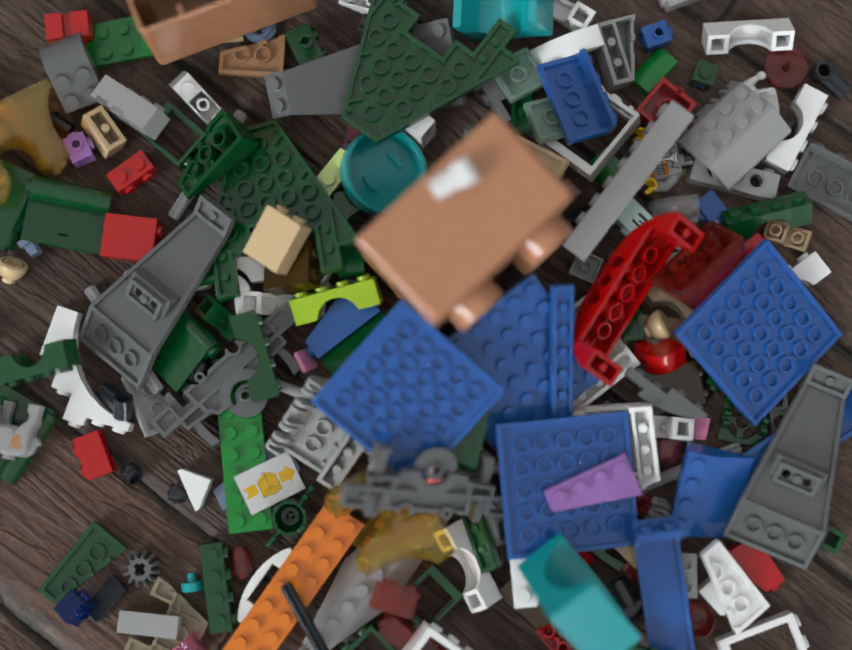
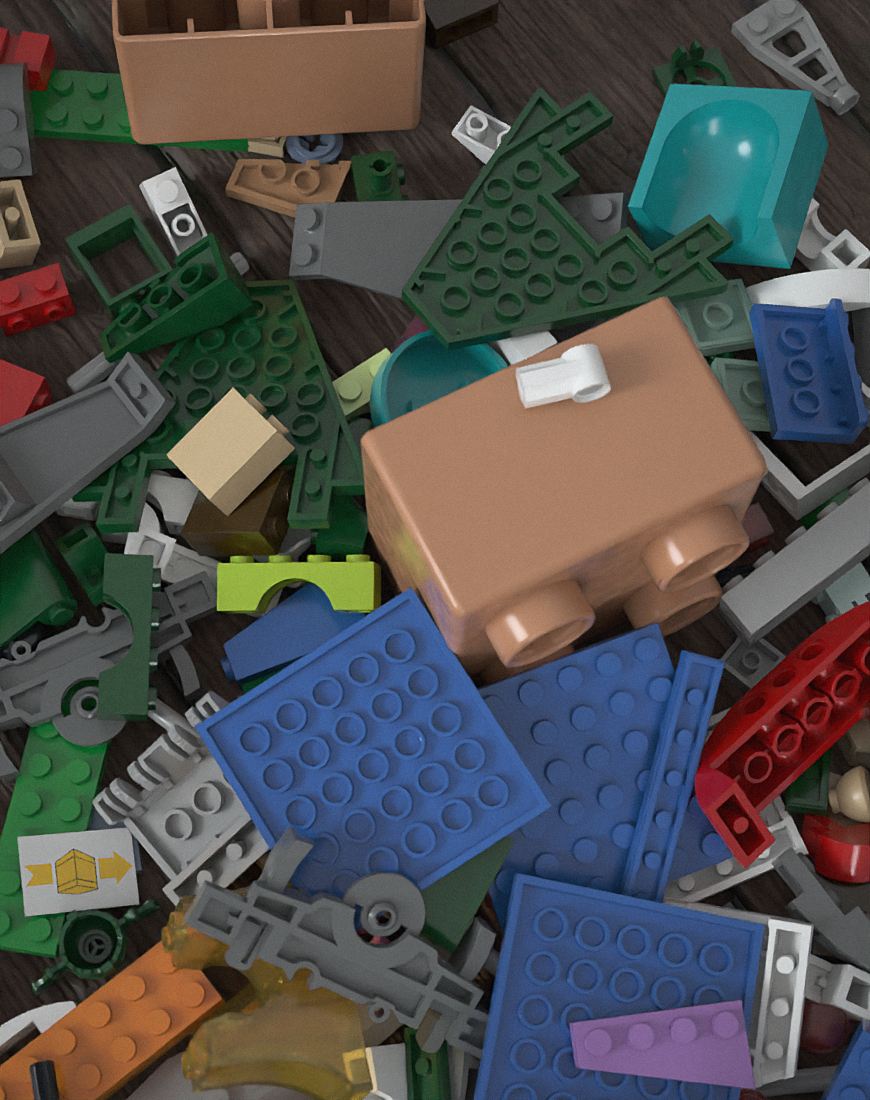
camera: 10 degrees right, 15 degrees down
(130, 107) = (64, 193): light grey wedge -> none
(305, 361) = (214, 679): bright pink slope -> none

